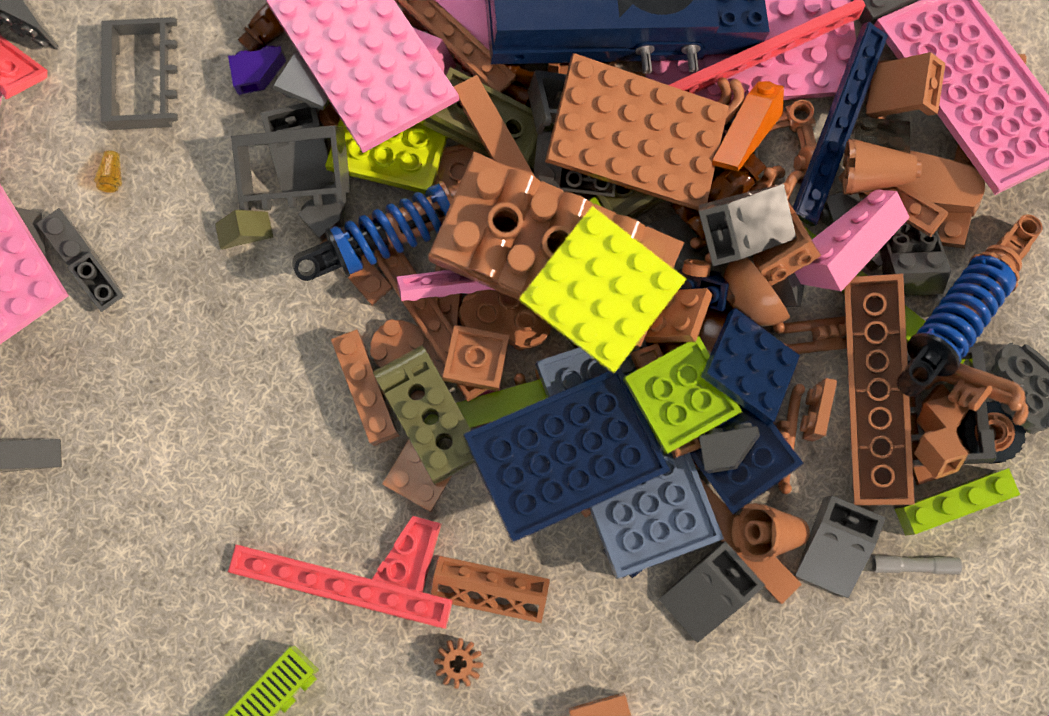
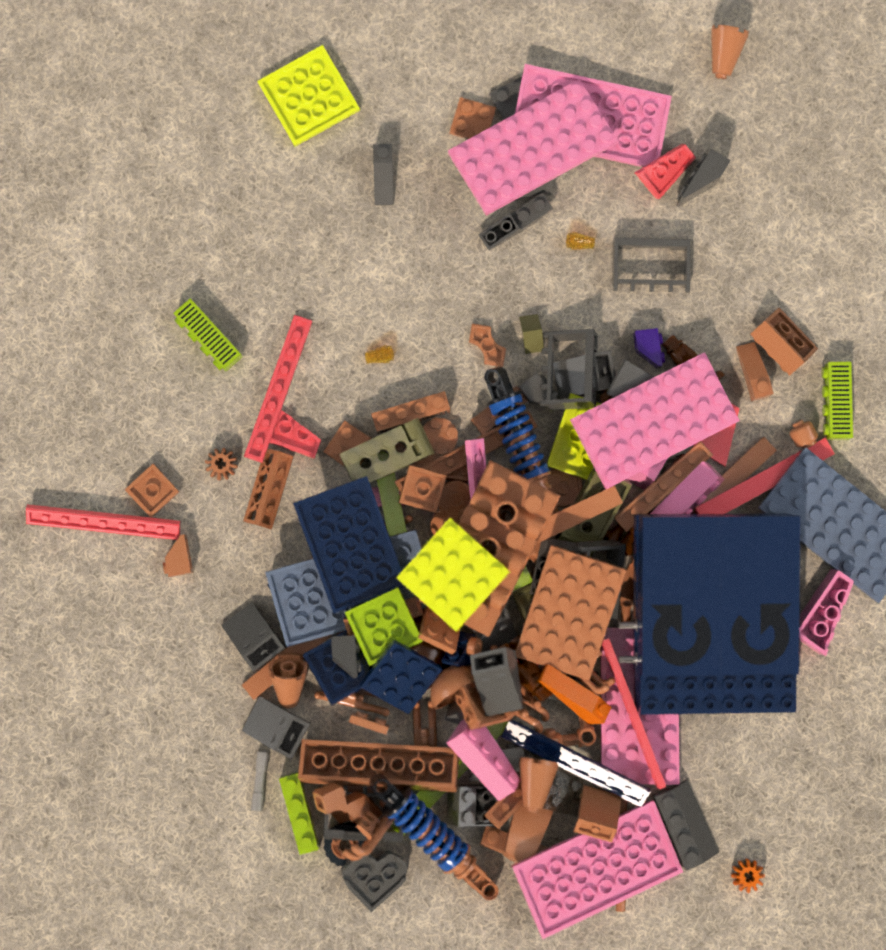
camera: 90 degrees right, 5 degrees up
(272, 281) = (482, 338): none -> nougat tile
(283, 439) = (380, 355): none -> clear yellow cone

